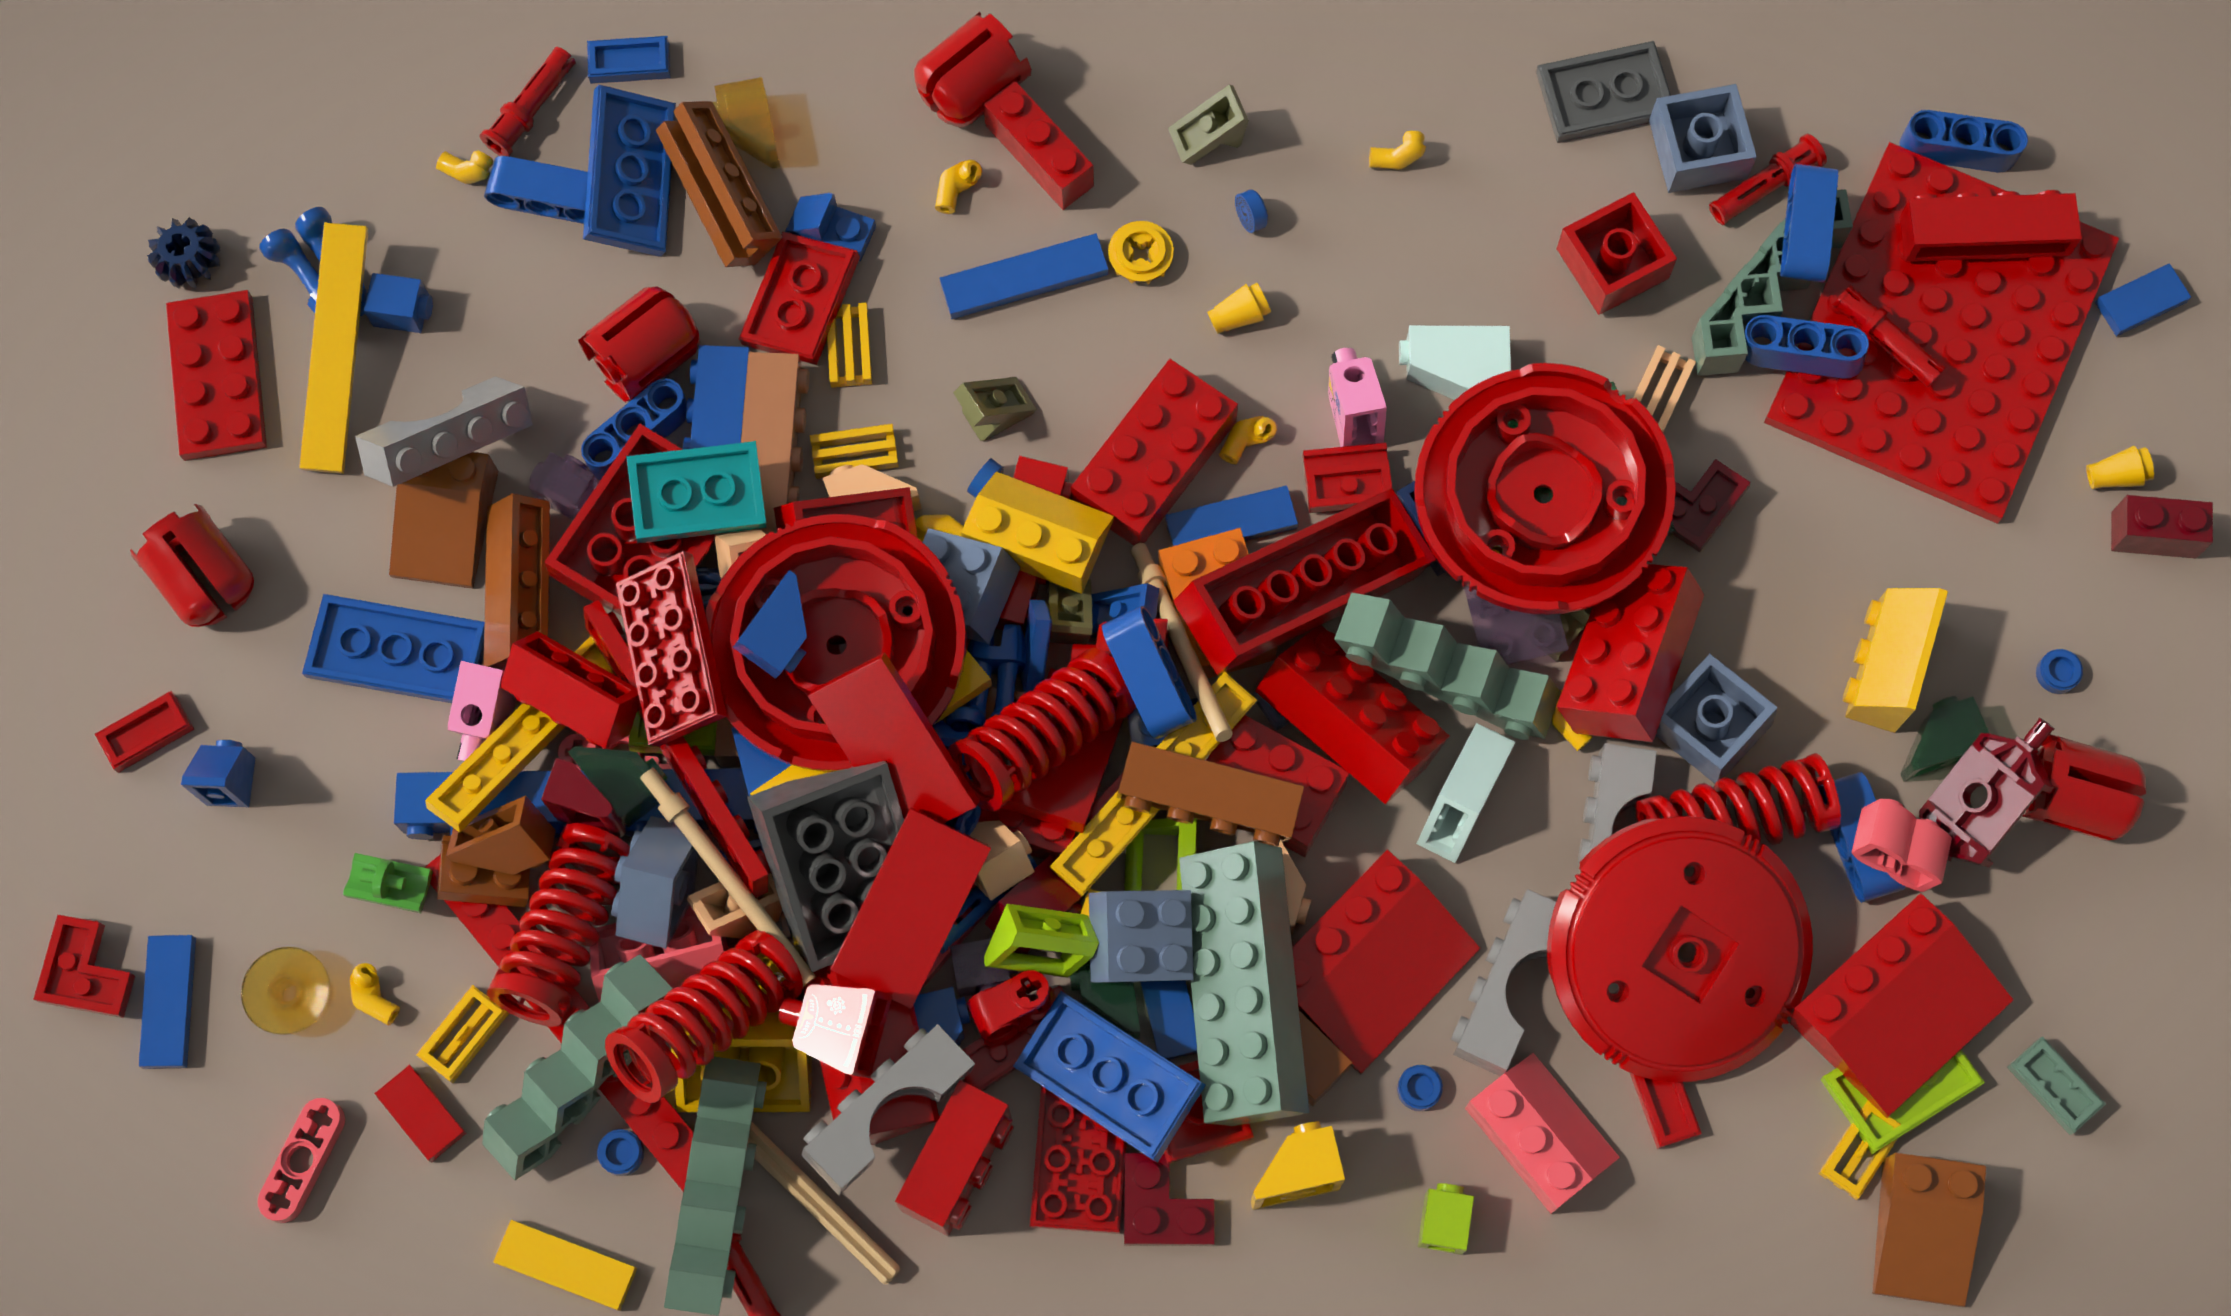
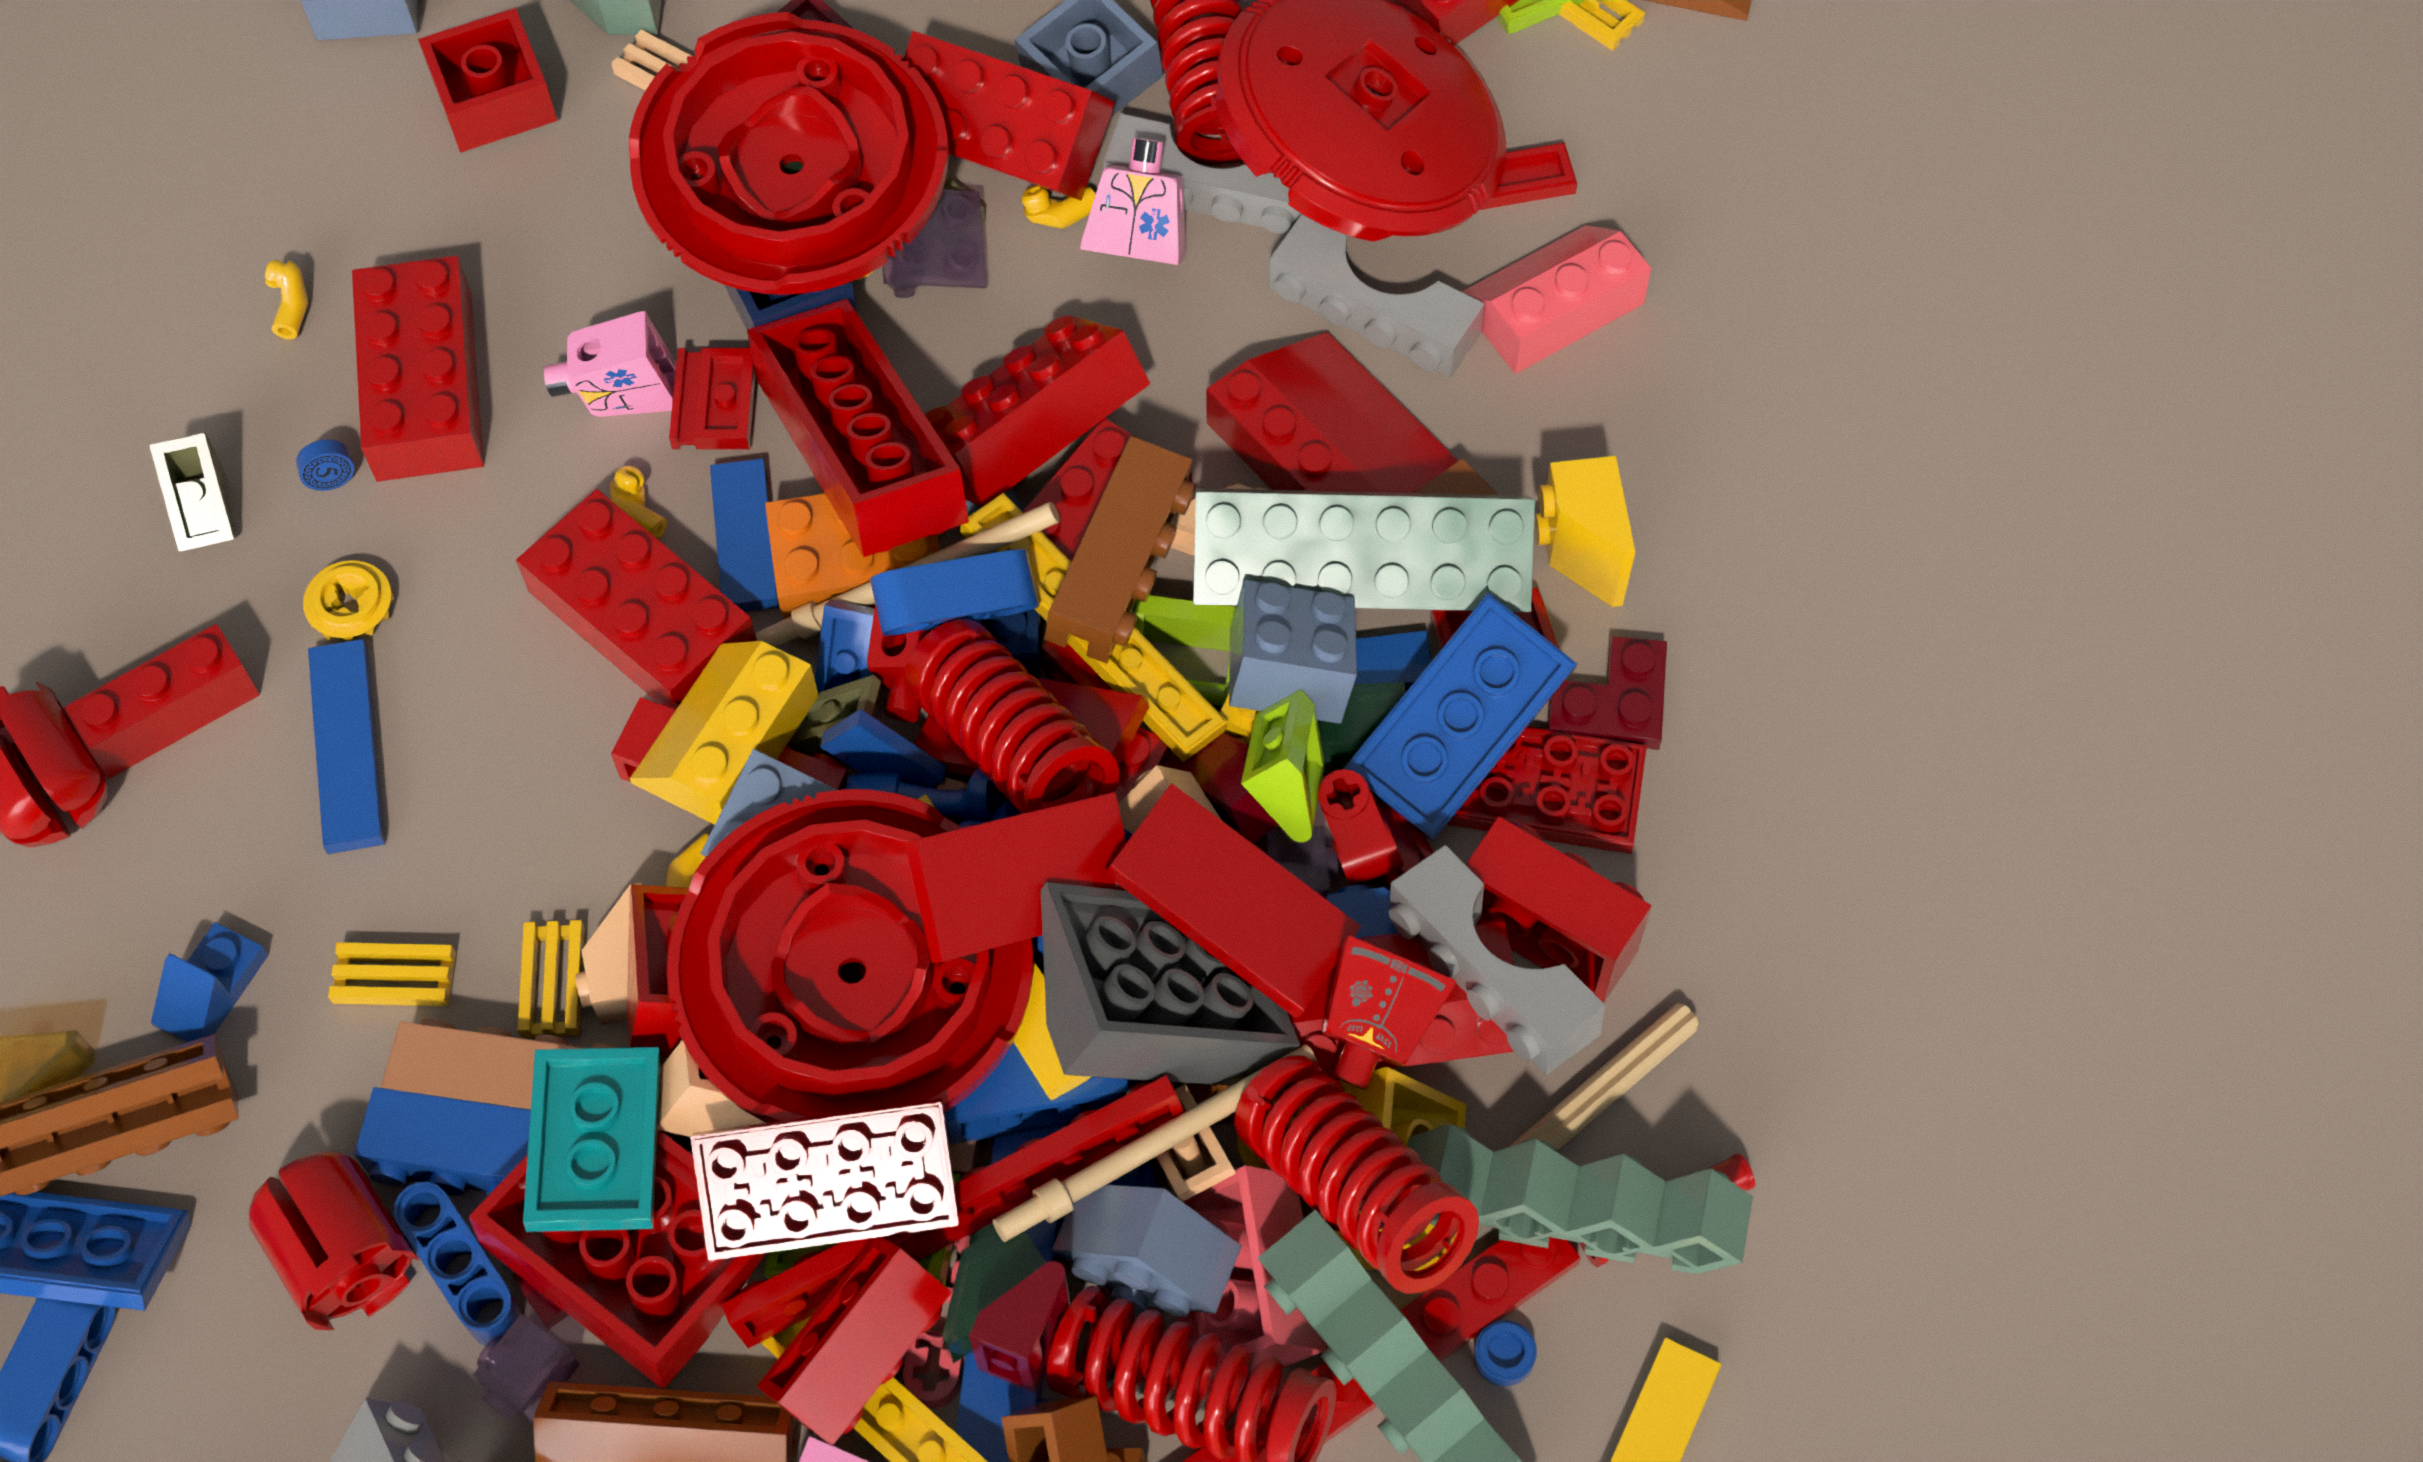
camera: 85 degrees left, 10 degrees down
(776, 630) = (830, 1009): blue slope -> none
(799, 297) = (307, 1031): red tile -> none
(955, 181) = (183, 818): yellow arm -> none
(984, 476) = (630, 811): blue tile -> none
(993, 405) = (529, 796): olive slope -> none
(1240, 309) = (458, 491): yellow cone -> none
(1342, 257) = (416, 369): none -> red brick
(1419, 1088) = (1489, 412): blue tile -> none
(1446, 1219) = (1650, 395): lime brick -> none
(1454, 356) = (590, 259): light aqua slope -> none
(1460, 674) = (991, 301): sand green brick -> none
(1465, 792) = (1149, 306): light aqua slope -> none
(1560, 779) = (1138, 209): none -> bright pink torso
(1602, 90) = (264, 80): dark grey tile -> none

